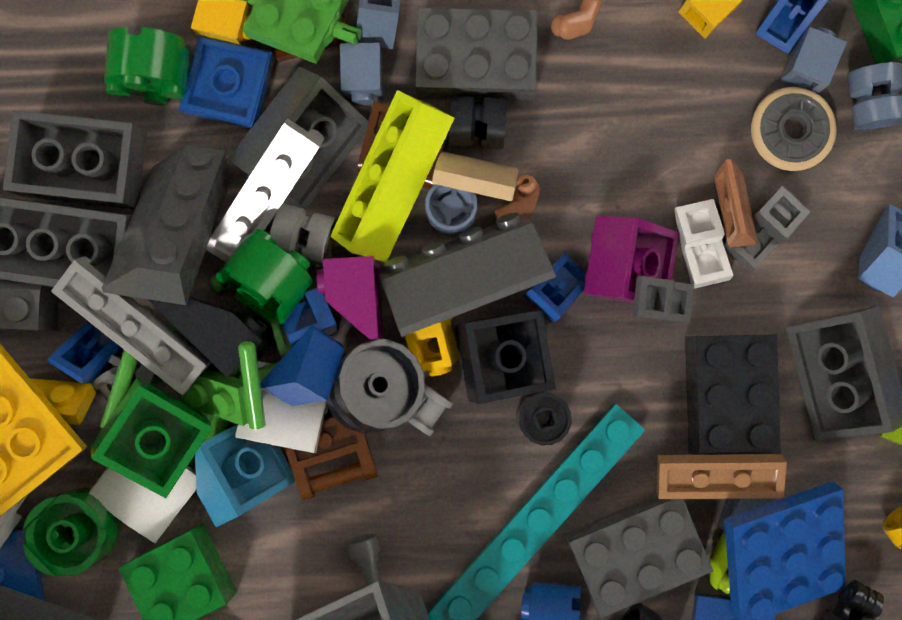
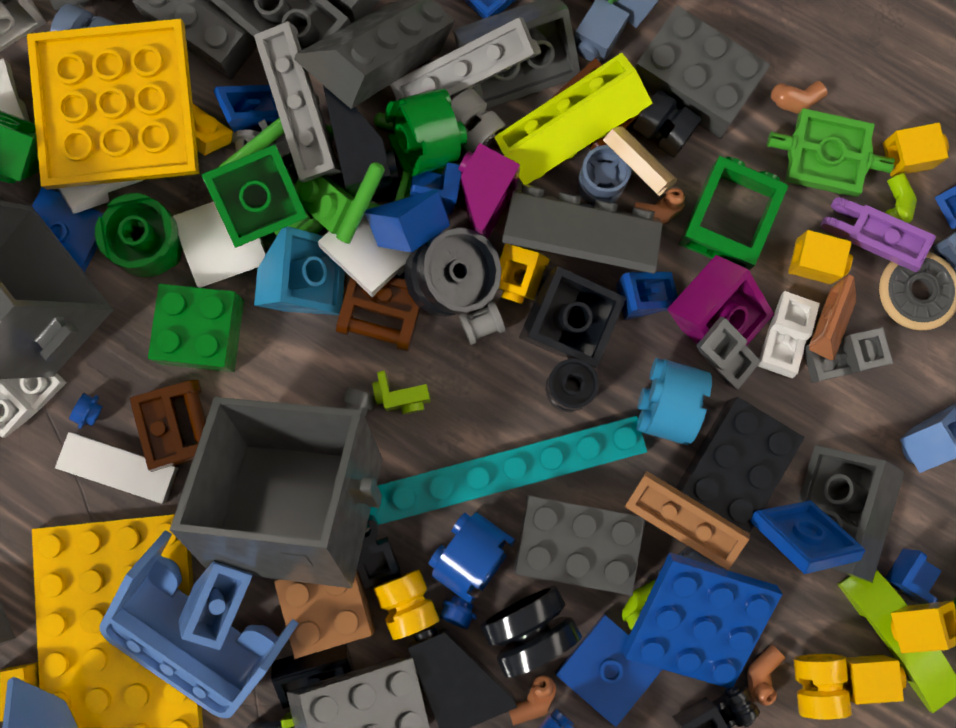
camera: 25 degrees right, 5 degrees down
(407, 521) = (408, 400): none -> lime bracket
(596, 205) = (710, 243): none -> green window
(638, 53) = (830, 152): none -> bright green plate
(642, 375) = (674, 401): none -> dark azure brick
(690, 156) = (821, 257): none -> yellow brick
(730, 101) = (880, 234): none -> medium lavender hinge
(733, 57) = (904, 197): none -> lime arm
(834, 424) = (807, 536): none -> blue plate
(862, 561) = (760, 675): none -> nougat arm

